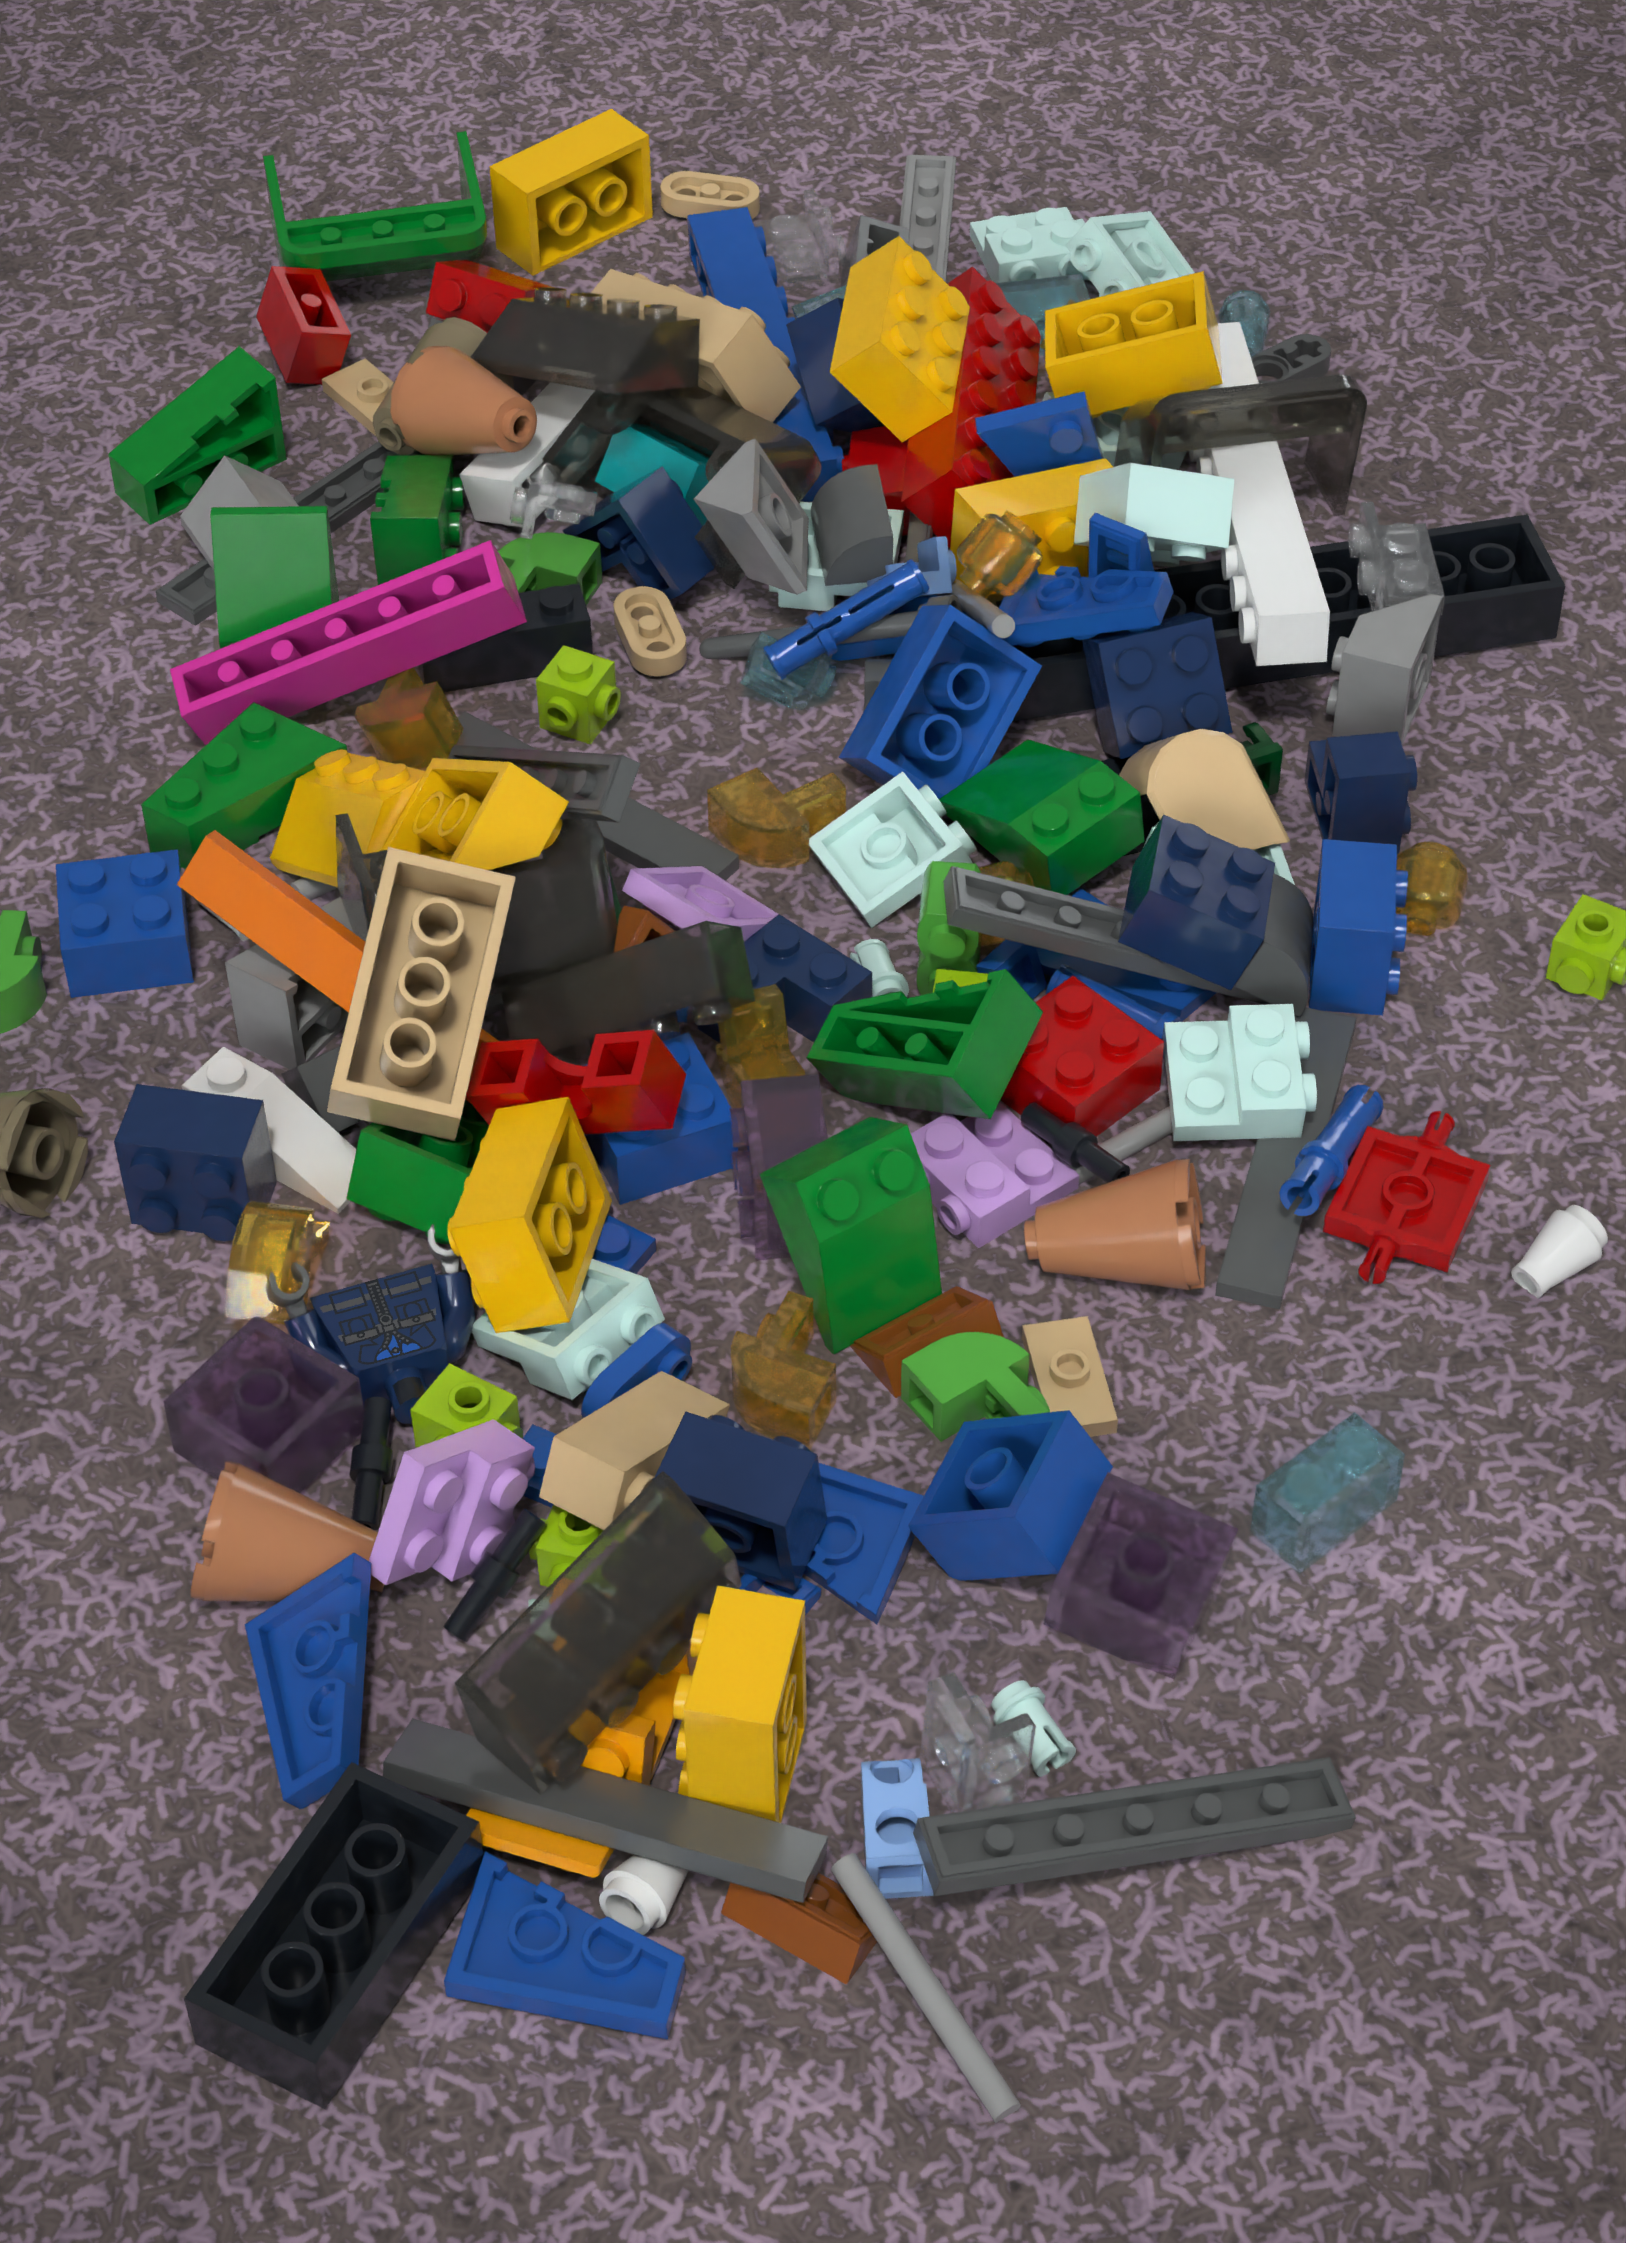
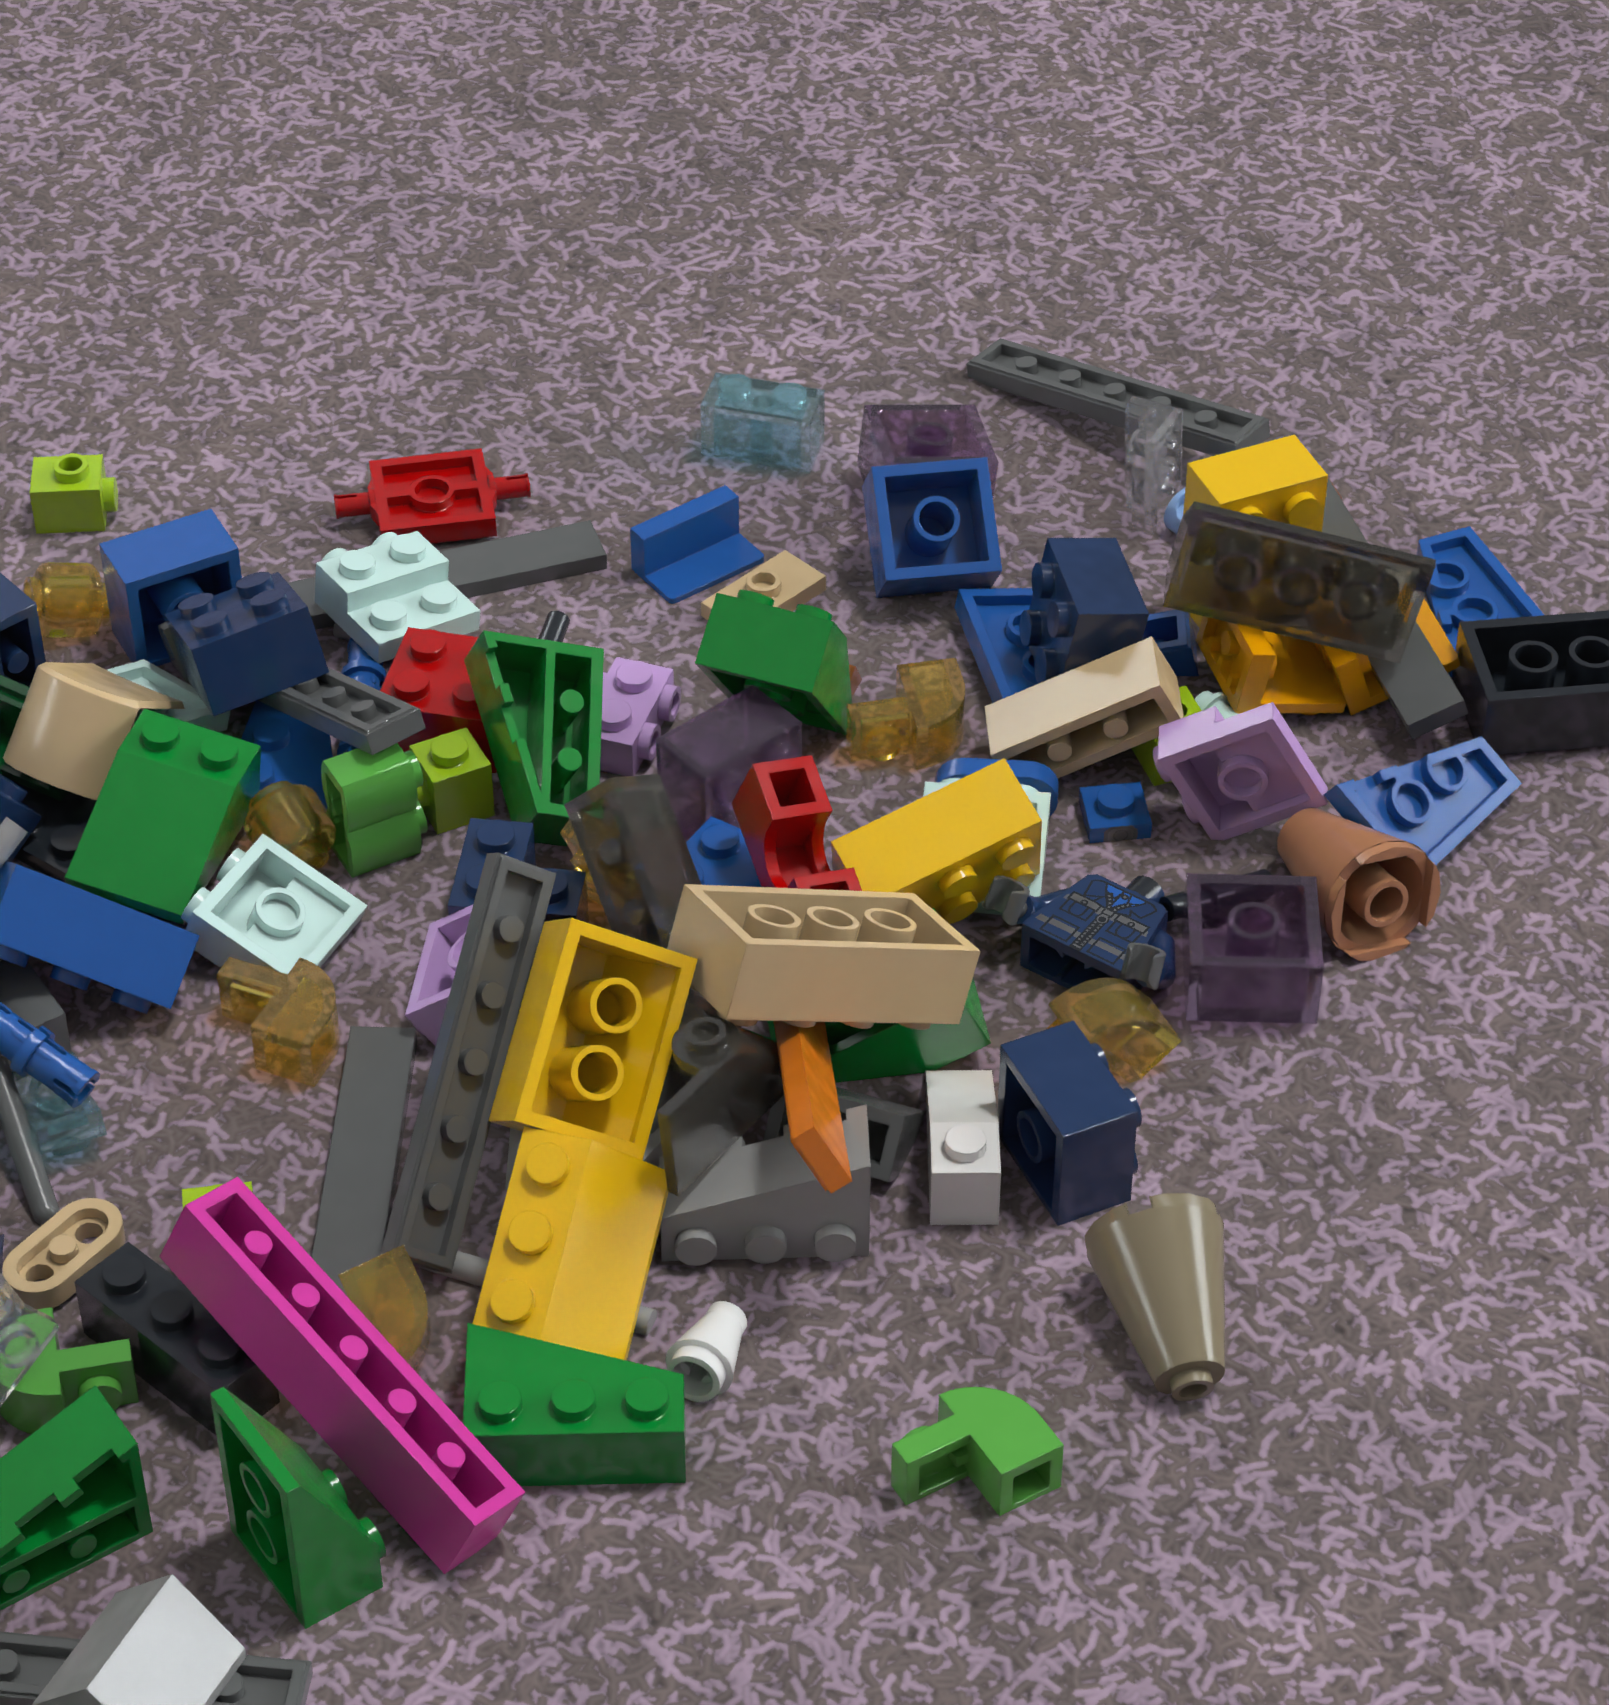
camera: 125 degrees left, 5 degrees down
(123, 923) = (823, 1389): blue brick -> none
(461, 1402) = (1133, 844): lime brick -> none
(875, 957) = (430, 869): light aqua pin -> none
(925, 1987) = (1332, 422): light grey bar -> none
(968, 1380) = (834, 592): bright green brick -> none
(1048, 1740) = (1080, 486): light aqua pin -> none
(1126, 1230) = (607, 586): nougat cone -> none
(1172, 1356) = (692, 546): none -> blue panel
(1324, 1161) = (449, 526): blue pin -> none
(1561, 1249) = (421, 413): white cone -> none

